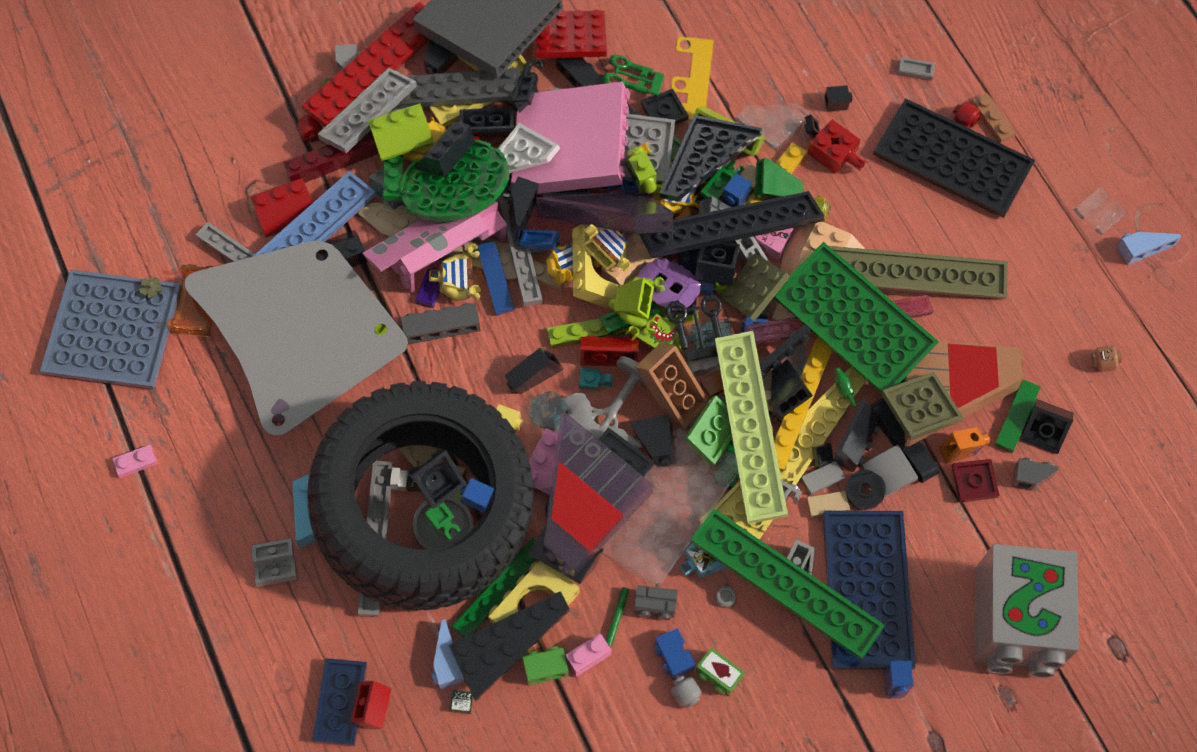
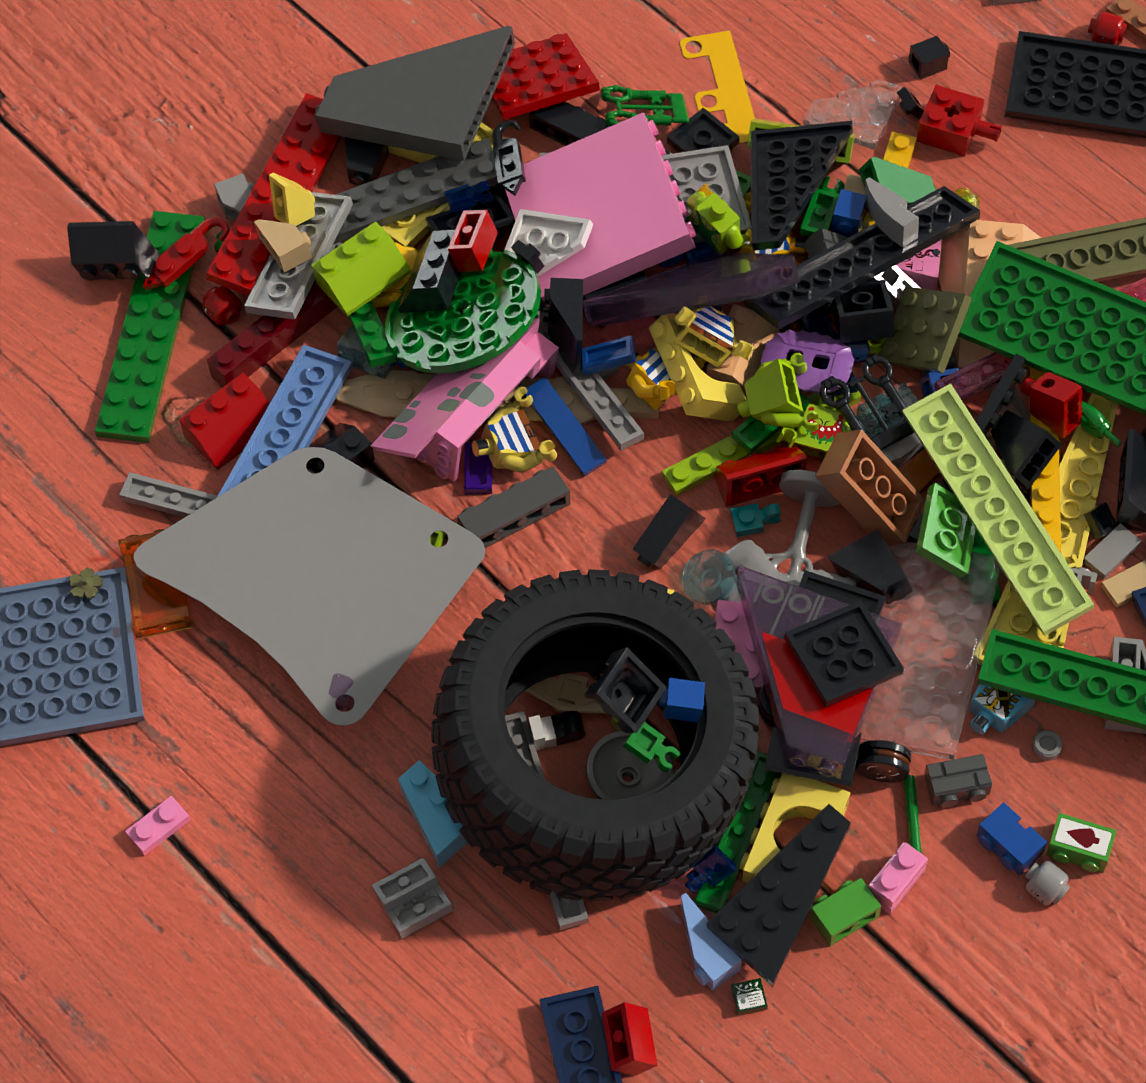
camera: 15 degrees left, 5 degrees down
(250, 71) = (110, 250): none -> black slope
(261, 128) = (146, 342): none -> green plate
(296, 87) = (183, 254): none -> red plate
(358, 100) = (284, 243): none -> tan slope
(373, 72) = (290, 200): none -> light yellow slope
(469, 608) = (711, 868): none -> clear blue plate
(477, 135) = (472, 240): none -> red brick
(488, 102) = (465, 196): none -> clear blue plate
(510, 156) = (529, 255): none -> black plate
(605, 494) = (843, 653): none -> black plate
(610, 573) = (883, 761): none -> black head
(761, 201) = (891, 213): none -> light grey slope
(820, 365) = (1055, 402): none -> red torso

